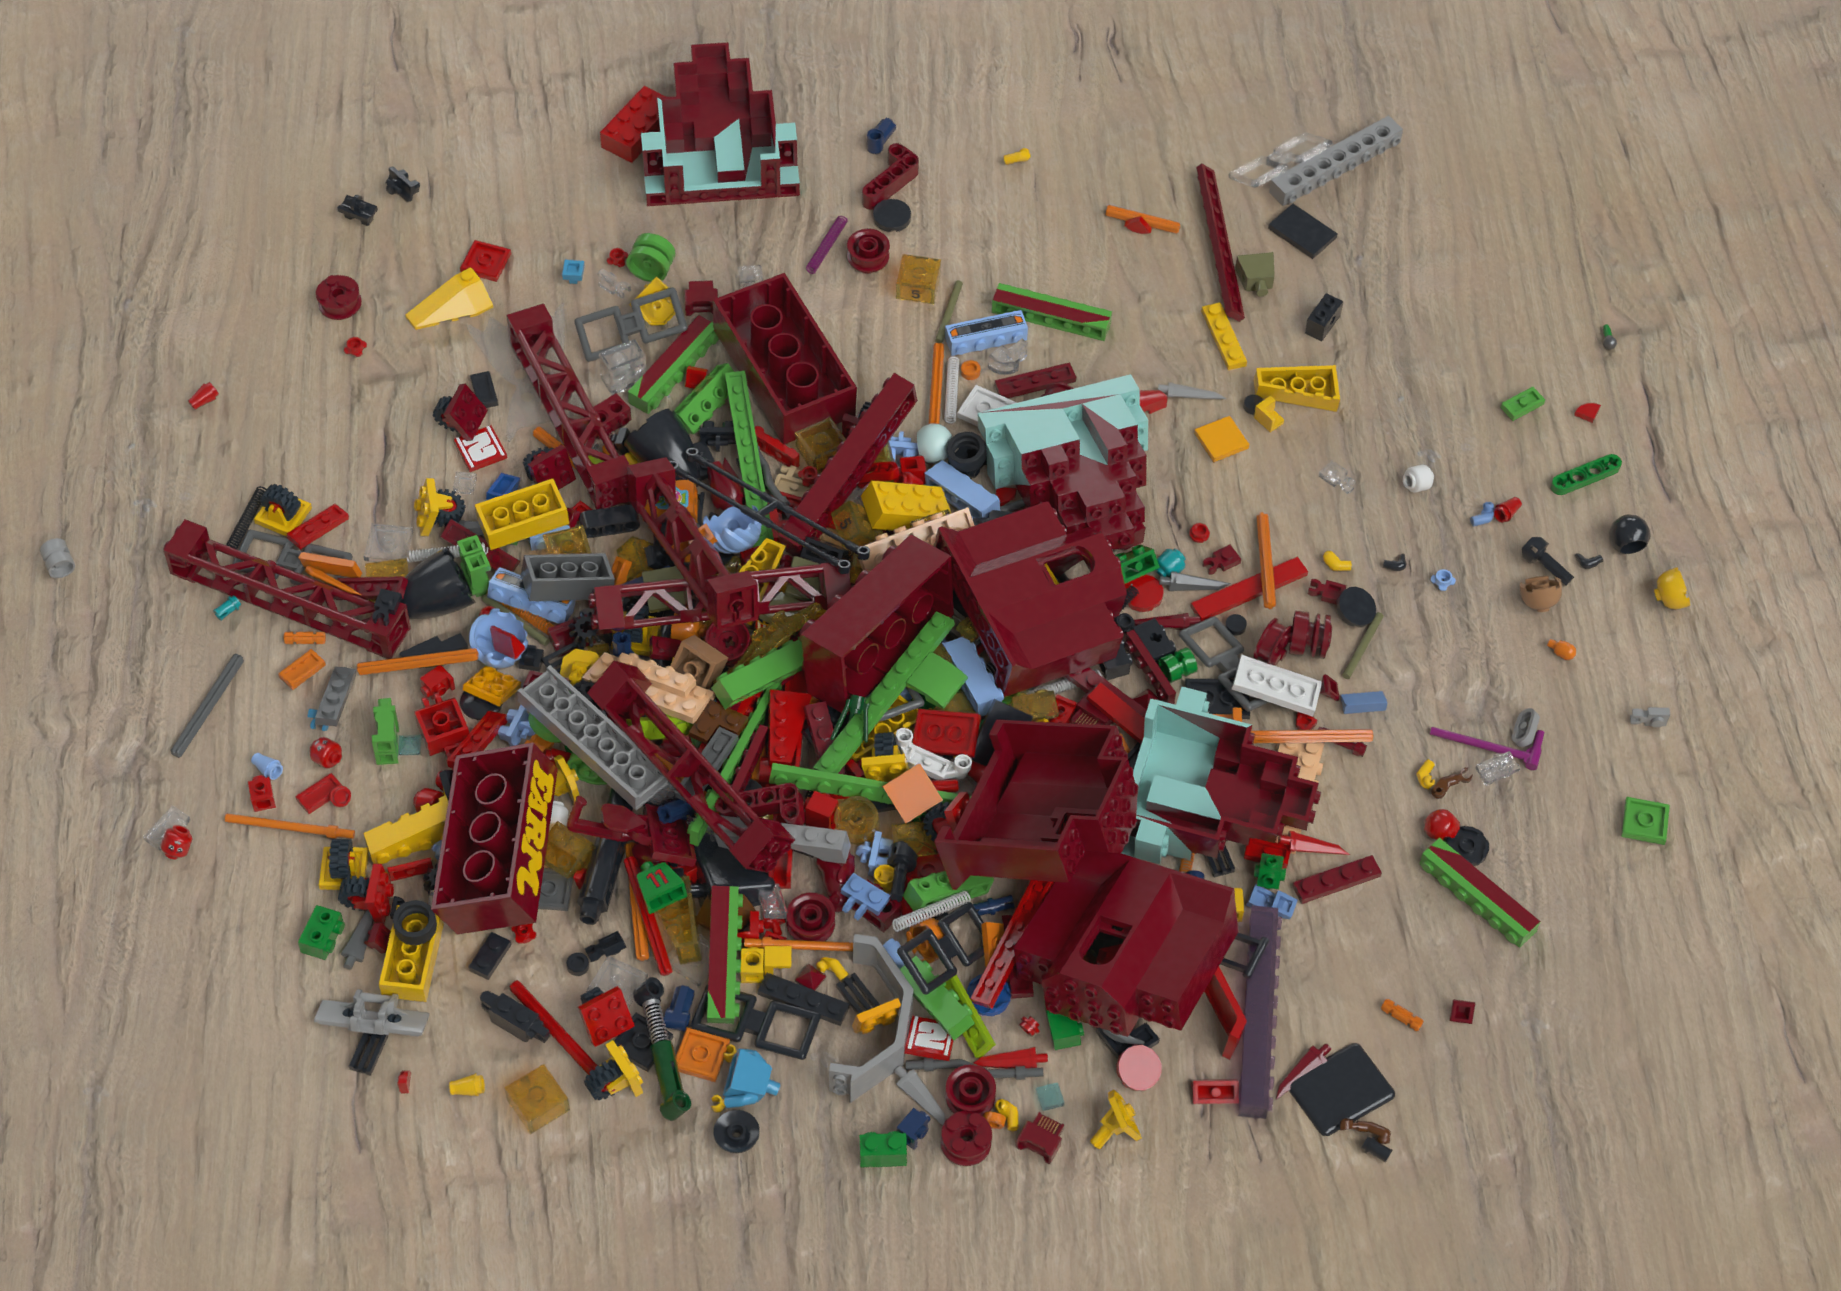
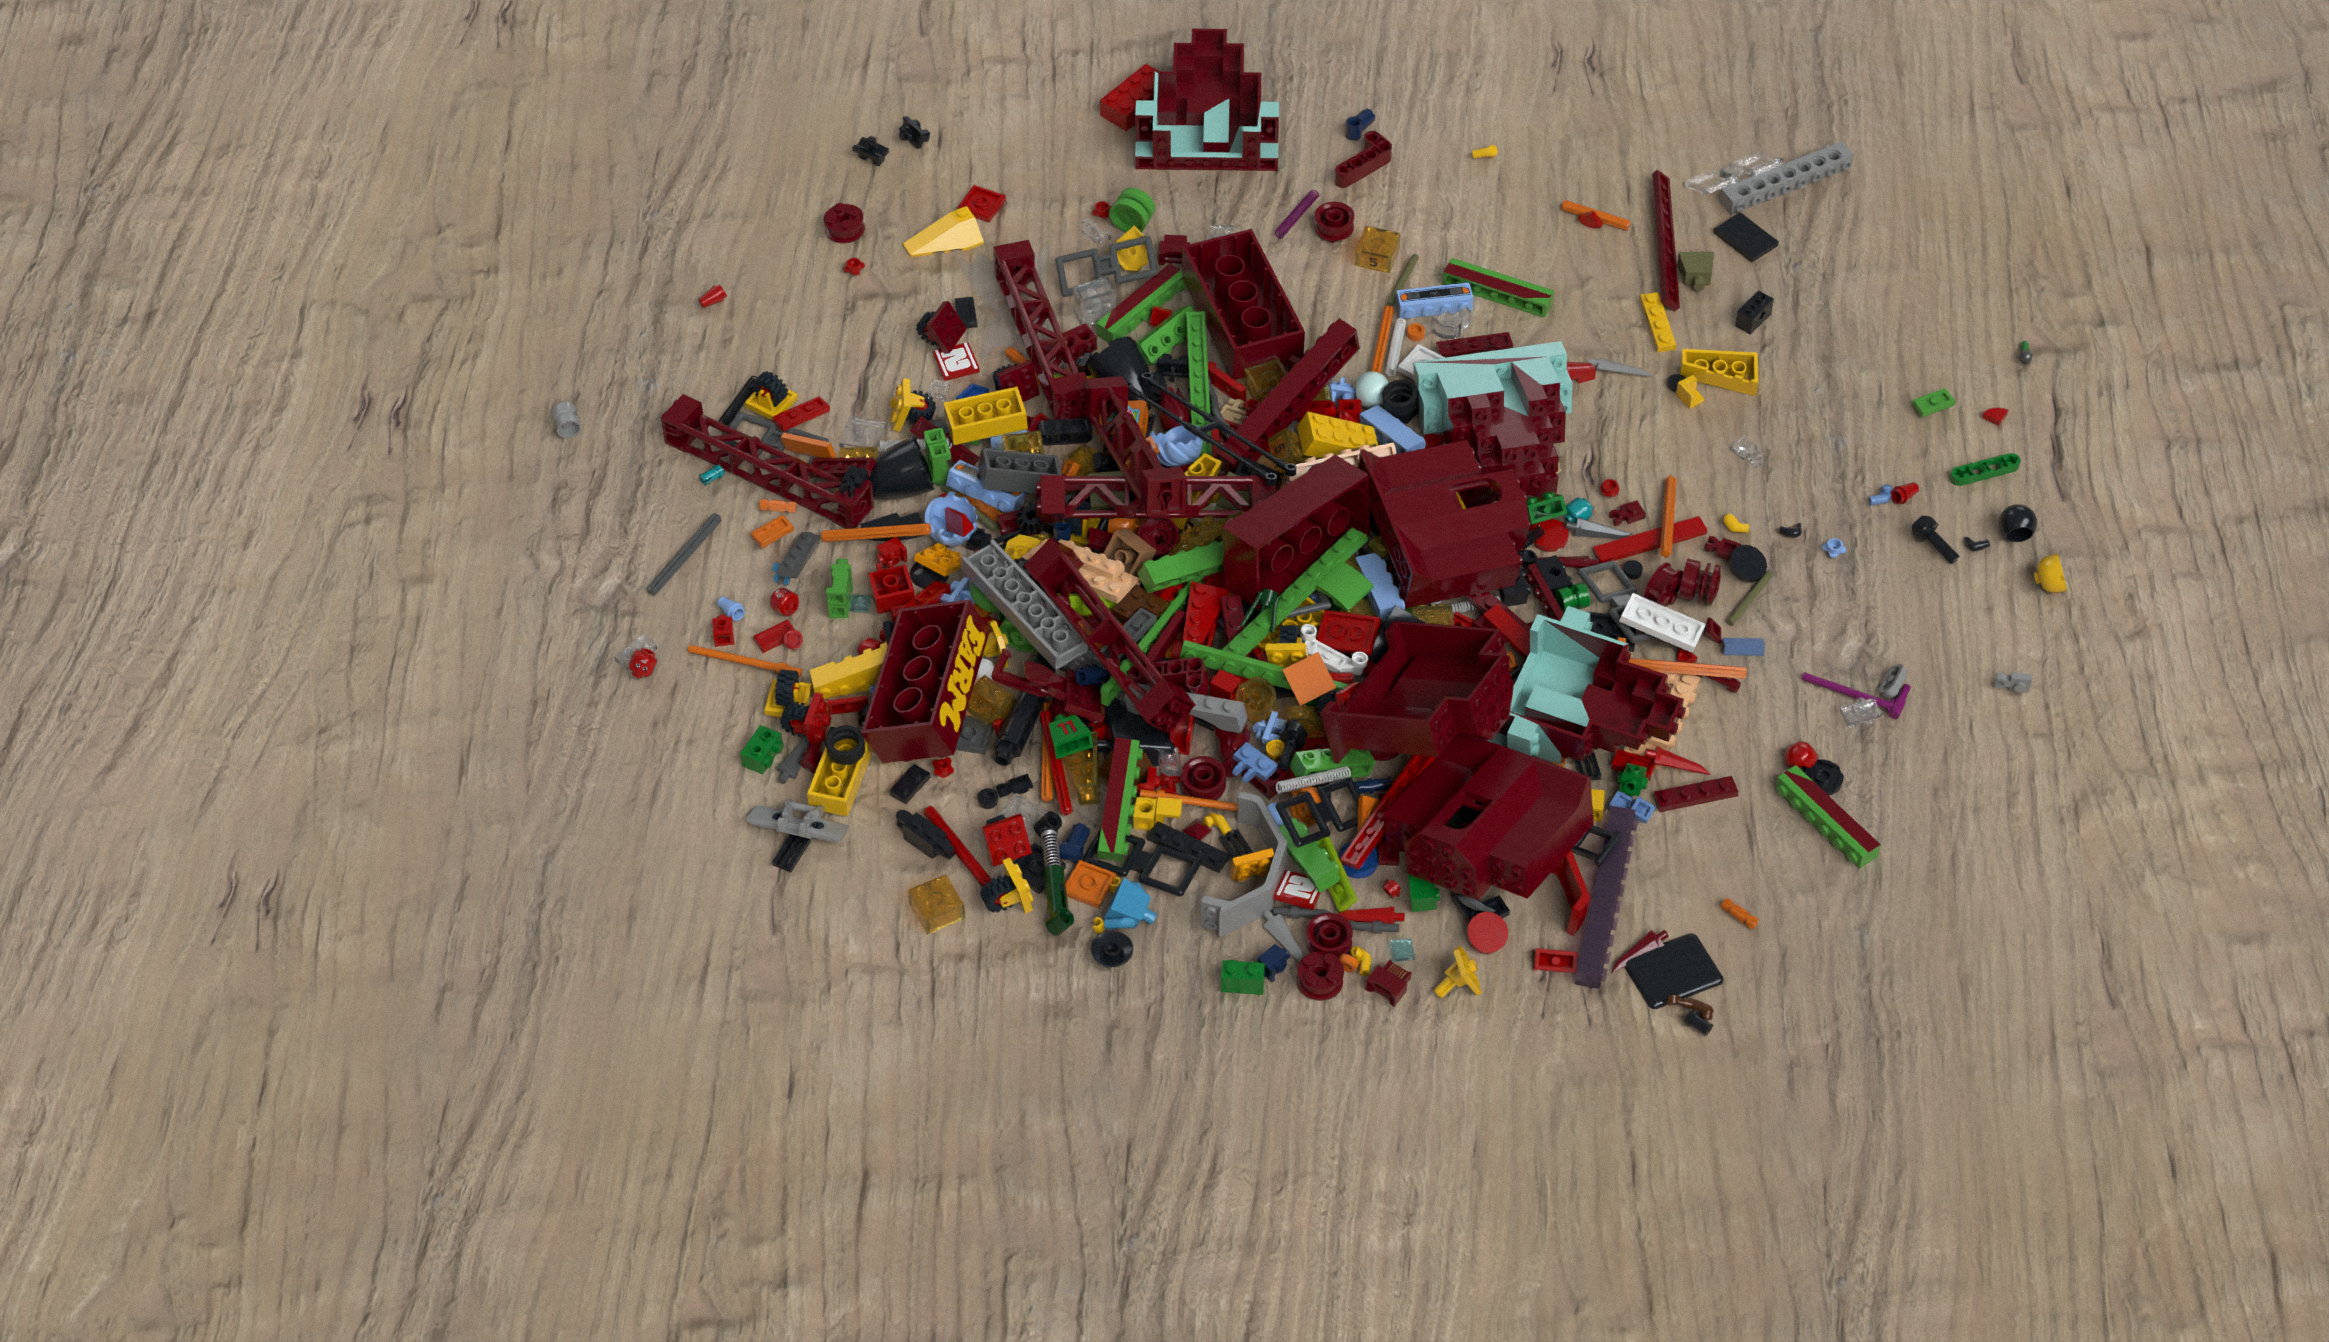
camera: 10 degrees right, 5 degrees down
(318, 574) = (798, 454): orange bar -> none
(404, 1081) = (819, 879): red tile -> none
(470, 1085) = (876, 888): yellow cone -> none
(573, 271) = (1060, 217): dark azure tile -> none
(892, 215) = (1361, 193): black tile -> none
(1221, 438) = (1642, 410): light orange tile -> none
(1418, 478) = (1823, 458): white head -> none
(1423, 774) = (1790, 712): yellow arm -> none
(1444, 783) = (1810, 721): reddish brown arm -> none
(1462, 1011) = (1796, 915): dark red slope -> none
(1541, 592) = (1925, 566): medium nougat cylinder -> none
(1562, 649) = (1939, 617): orange cylinder -> none
(1645, 820) = (1995, 770): bright green plate -> none

